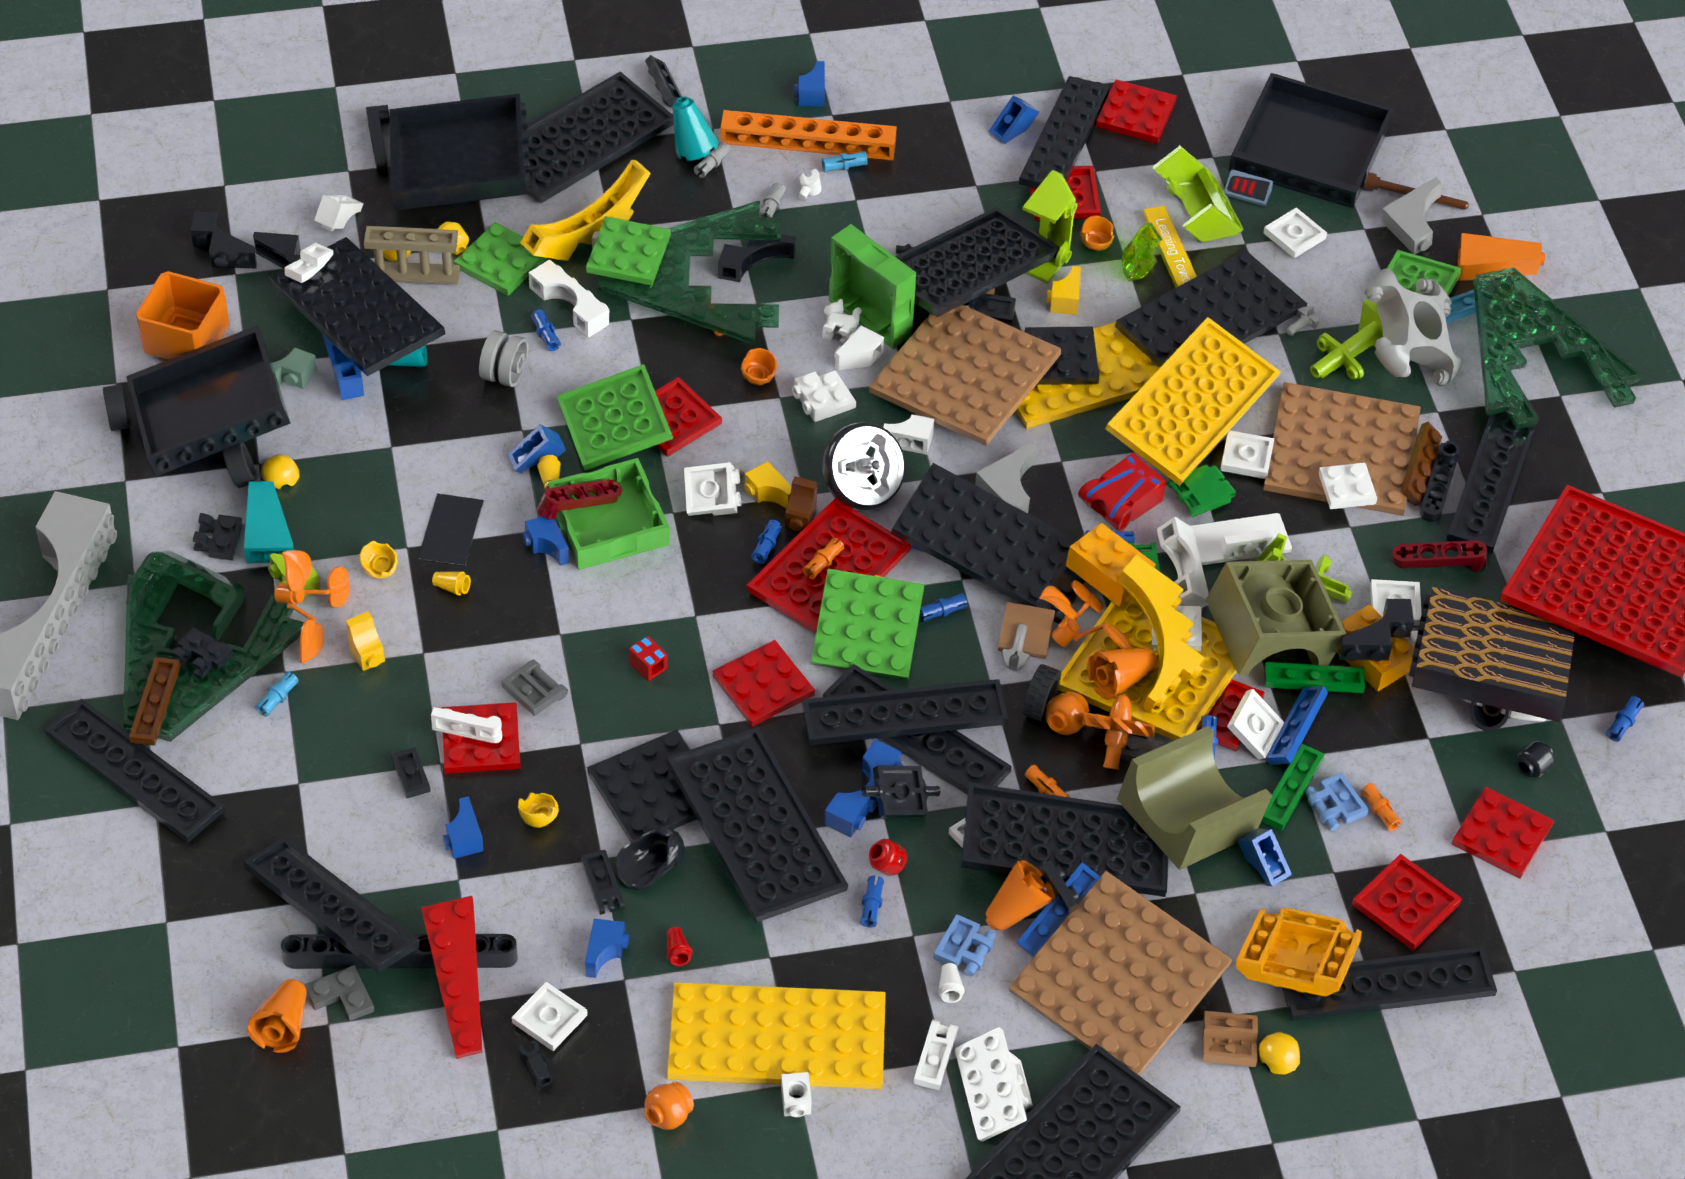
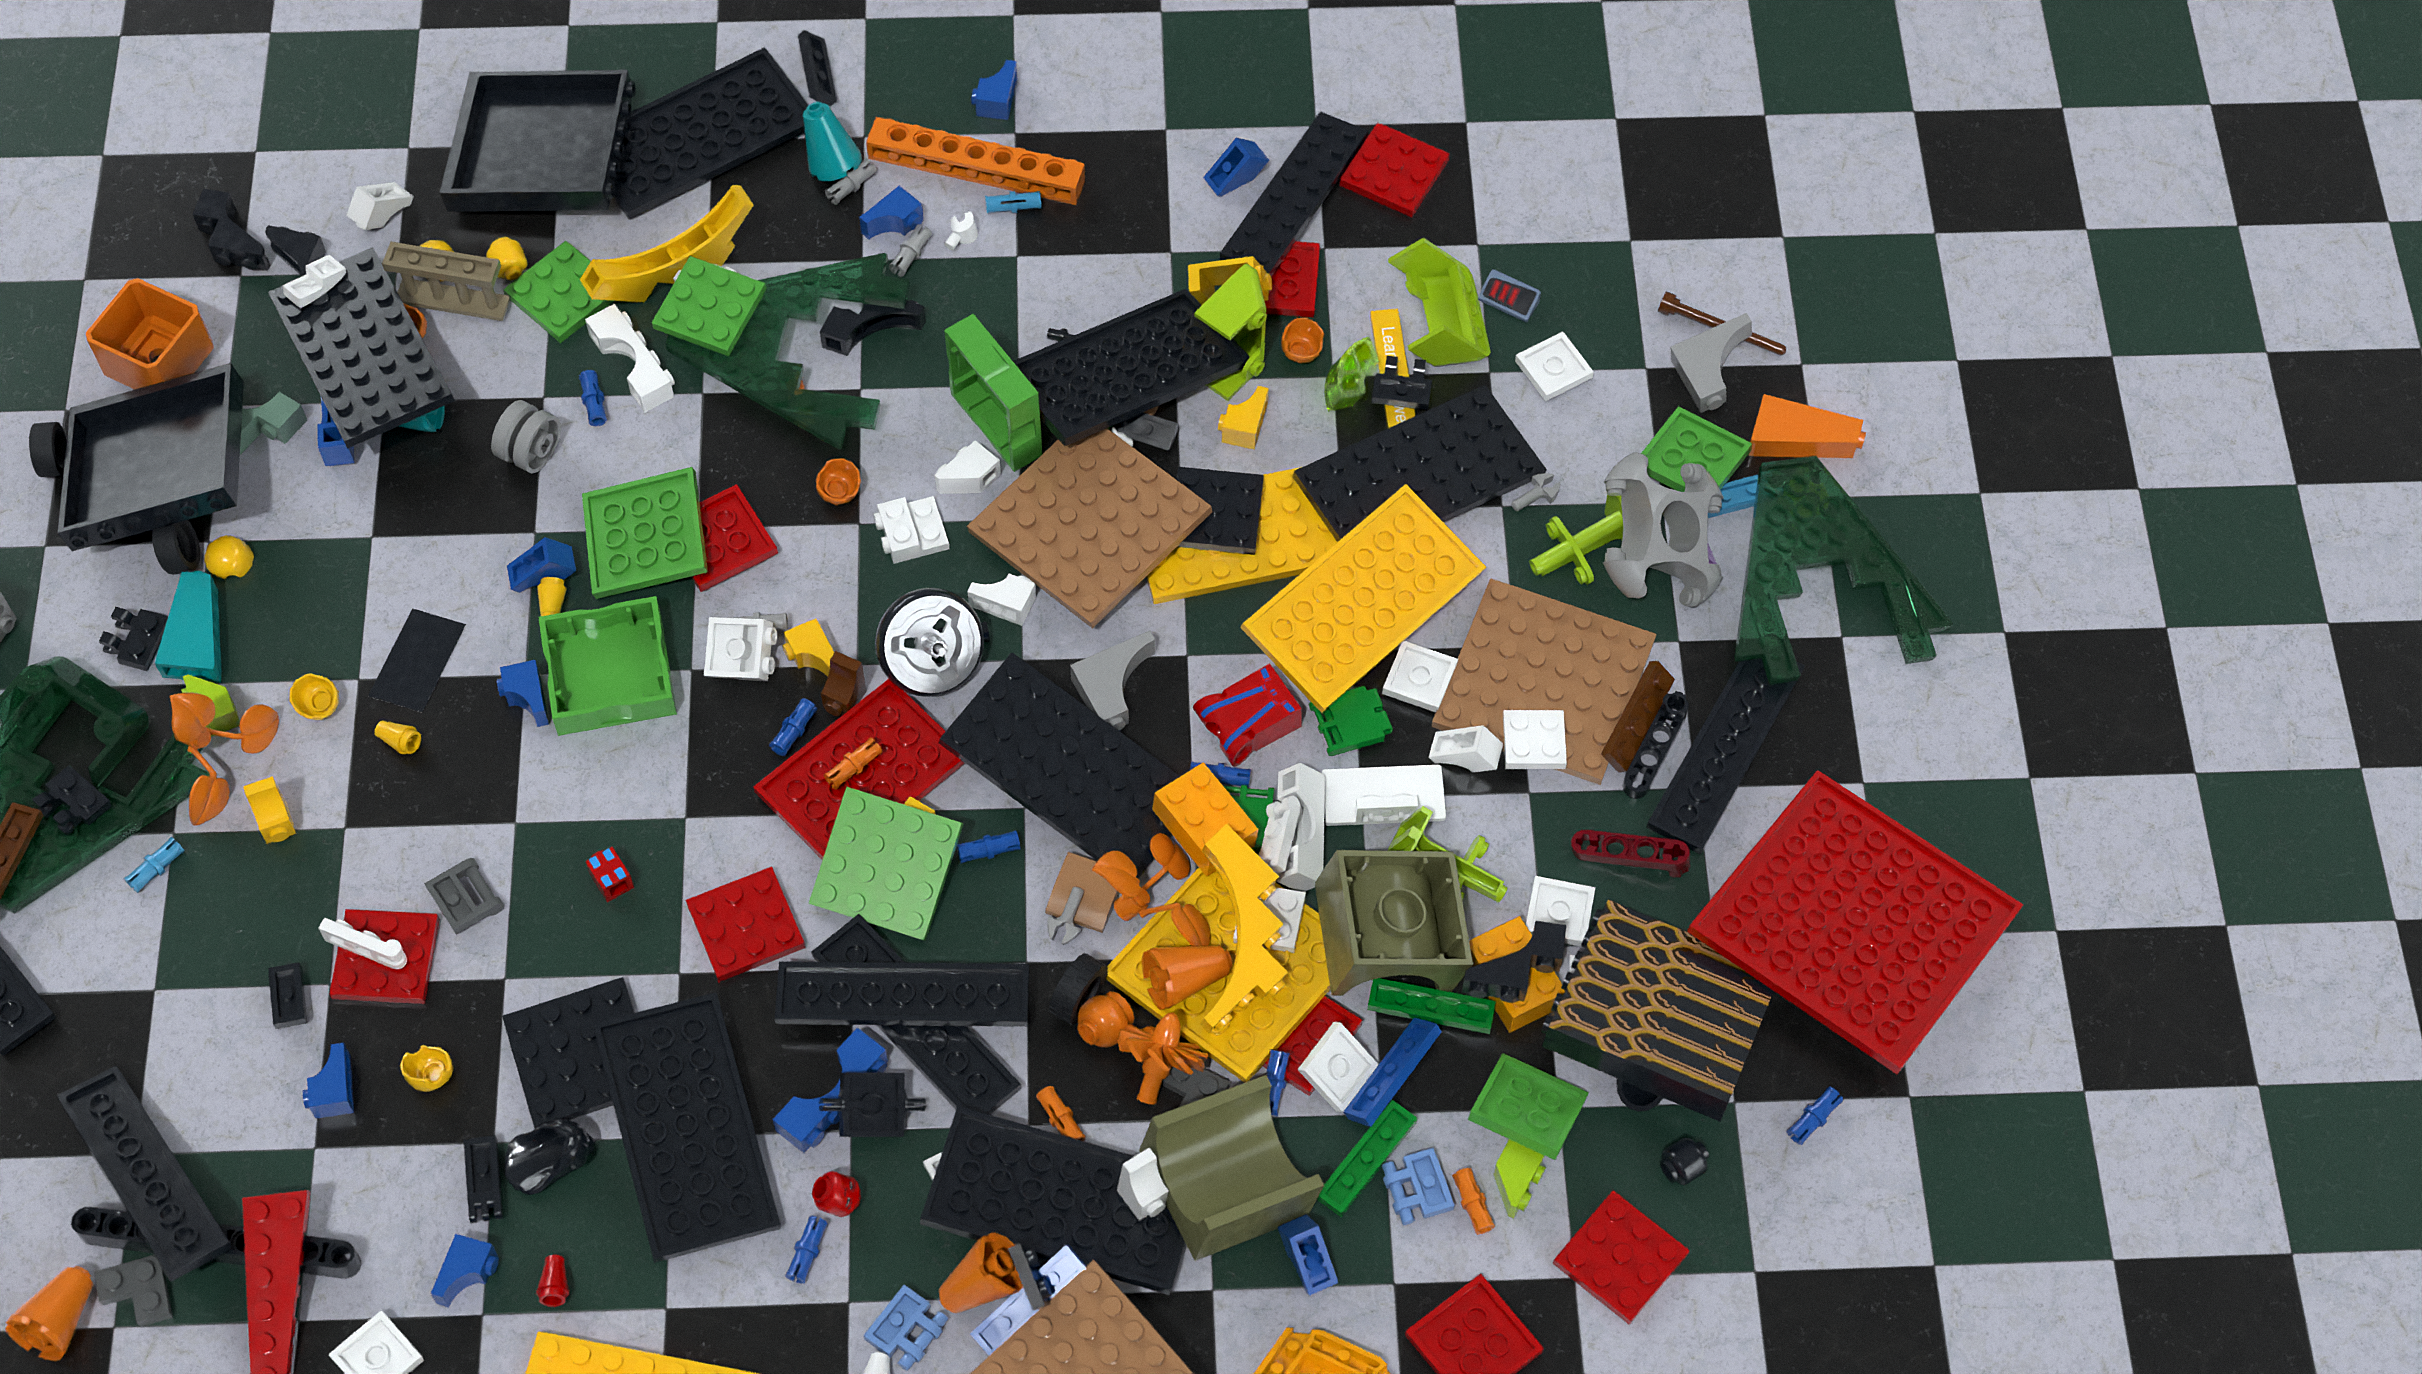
camera: 10 degrees right, 10 degrees up
(375, 116) = (453, 78): black beam -> none
(556, 498) = (533, 646): dark red beam -> none
(753, 177) = (893, 213): none -> blue arch
(839, 322) = (953, 430): white animal -> none
(1021, 190) = (1210, 274): none -> yellow panel
(1128, 816) = (1142, 1185): none -> white arch
(1170, 562) = (1279, 833): none -> white plate
(1183, 259) = (1402, 390): none -> black plate
(1298, 497) = (1467, 747): none -> white arch
(1311, 140) = (1605, 236): black panel -> none
(1408, 734) = (1528, 1106): none -> bright green plate
(1408, 784) = (1514, 1175): none -> lime slope

